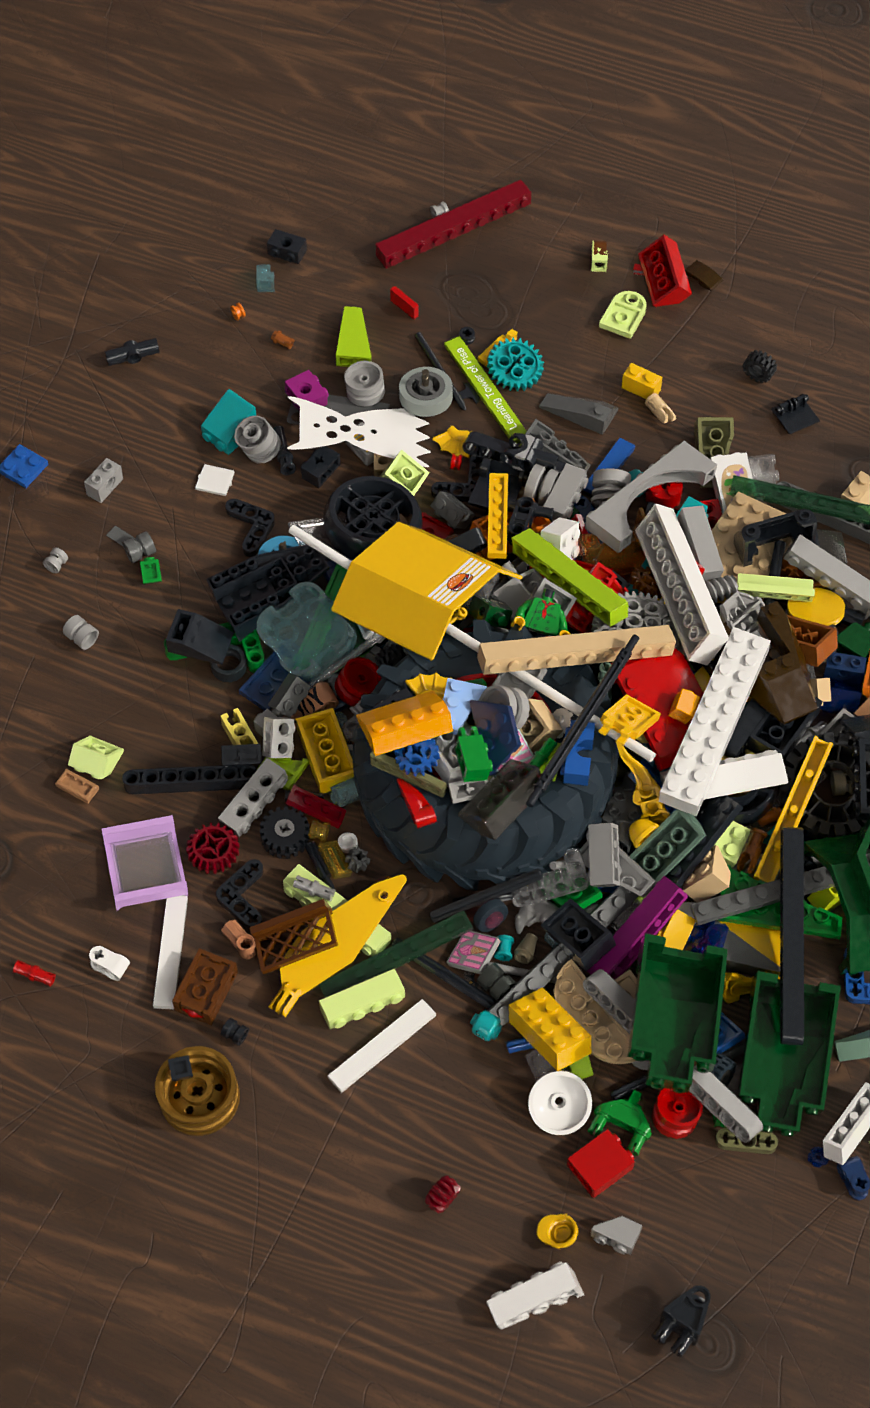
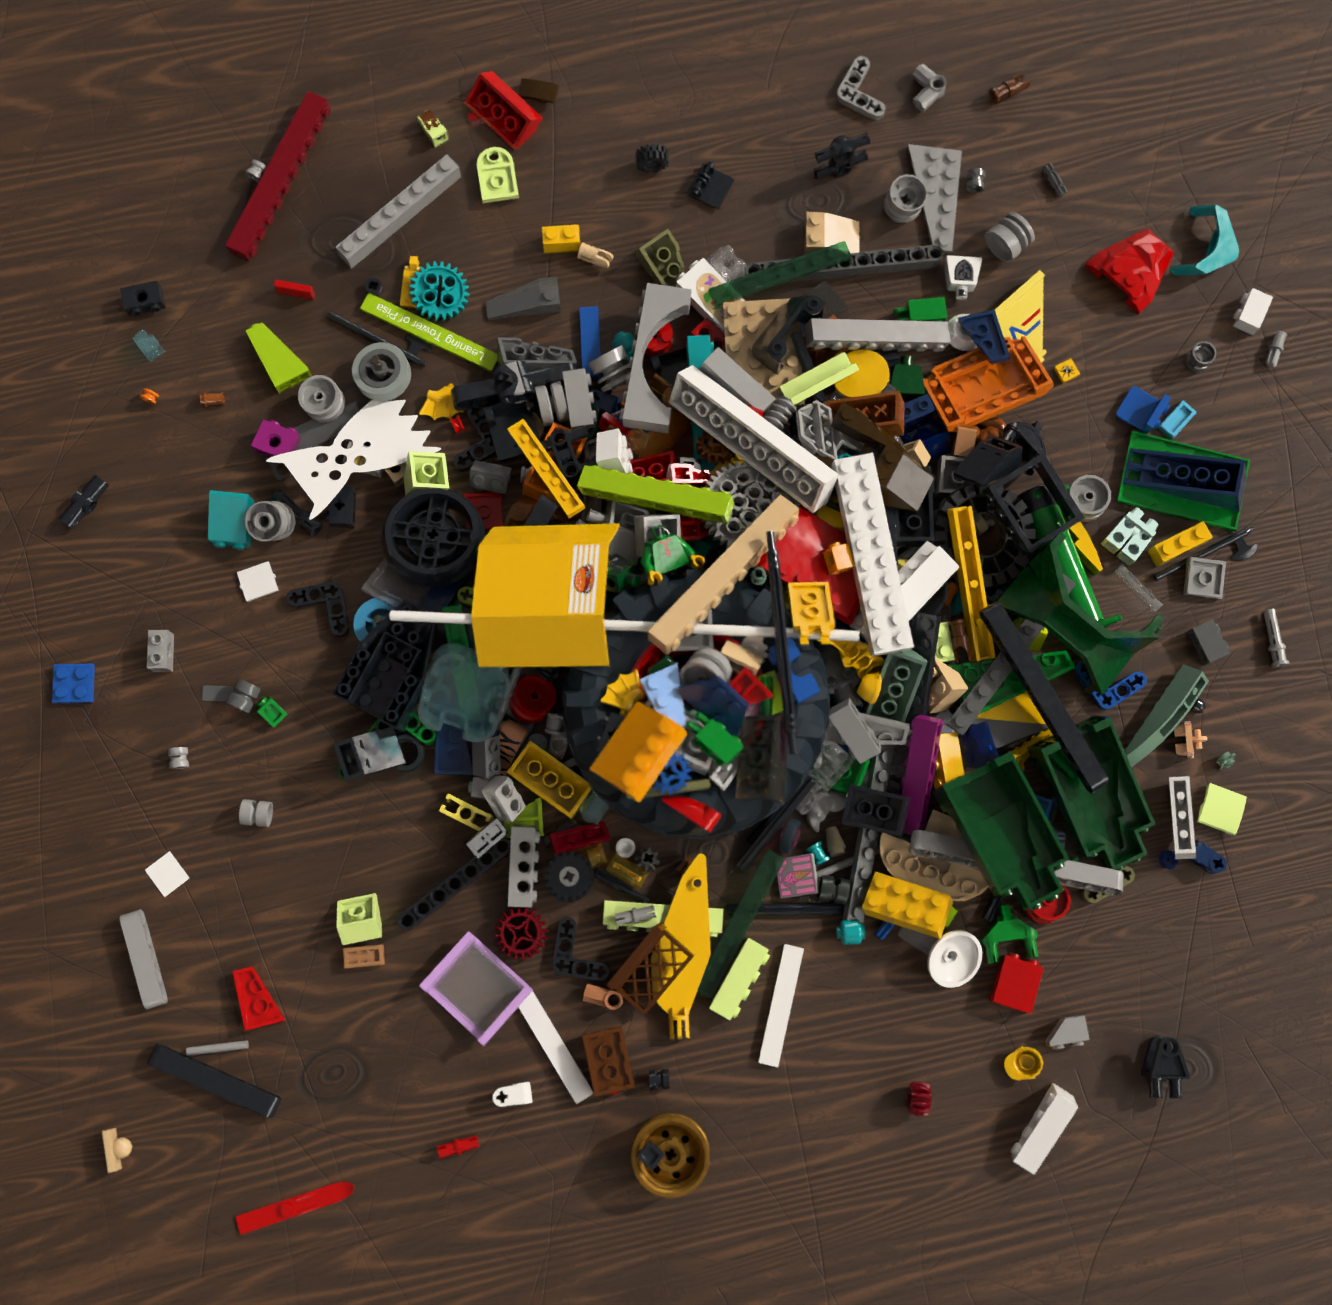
camera: 40 degrees left, 20 degrees up
(527, 295) = (398, 211): none -> light grey brick
(532, 738) = (750, 687): none -> red wing

